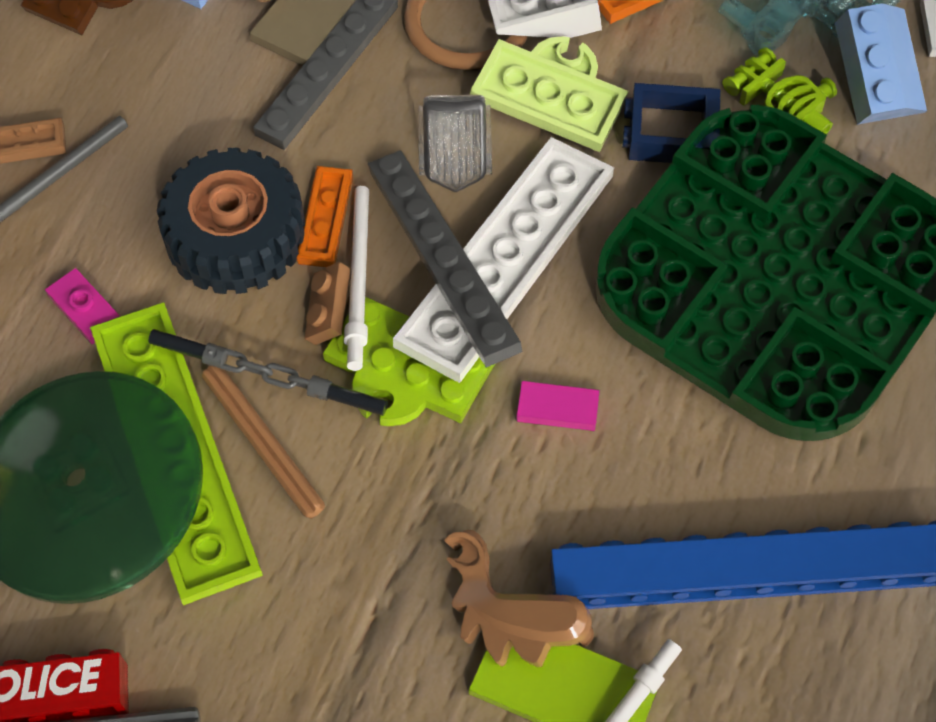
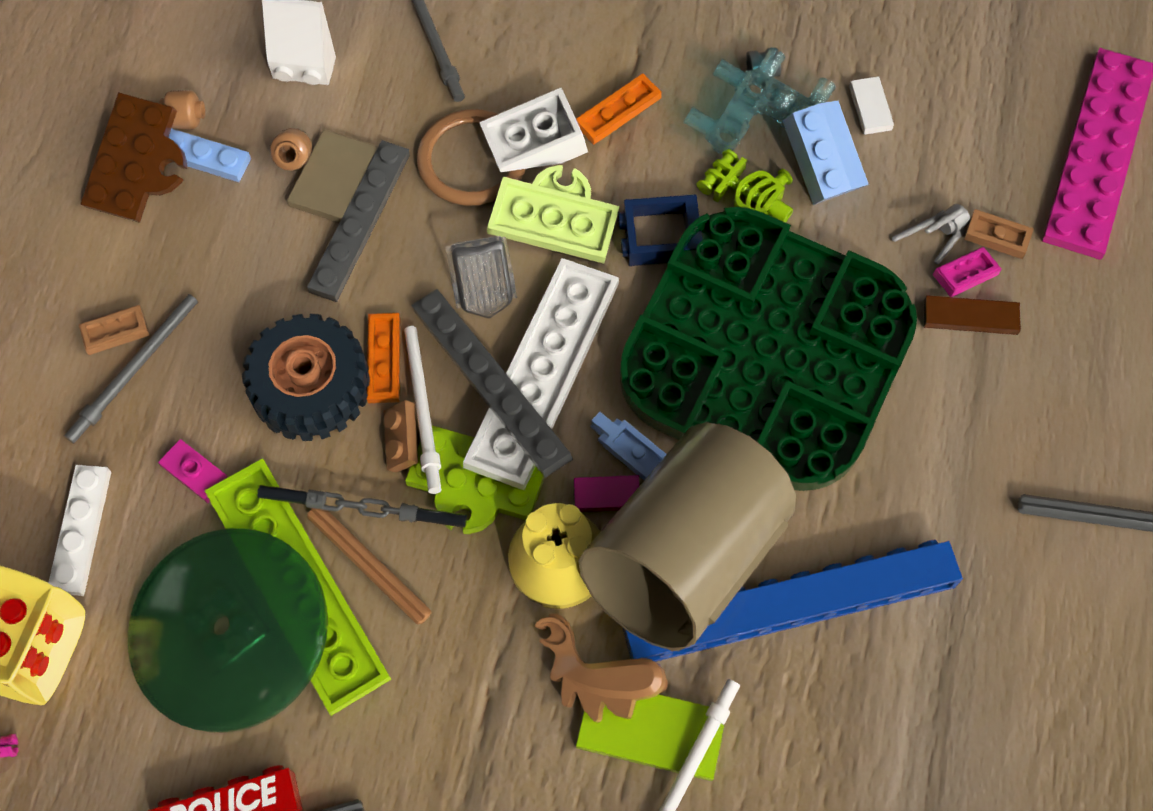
camera: 10 degrees left, 5 degrees up
(483, 481) = (549, 571): none -> light yellow cone
(597, 358) = (627, 445): none -> light blue hinge
(646, 456) = (689, 536): none -> dark tan piece

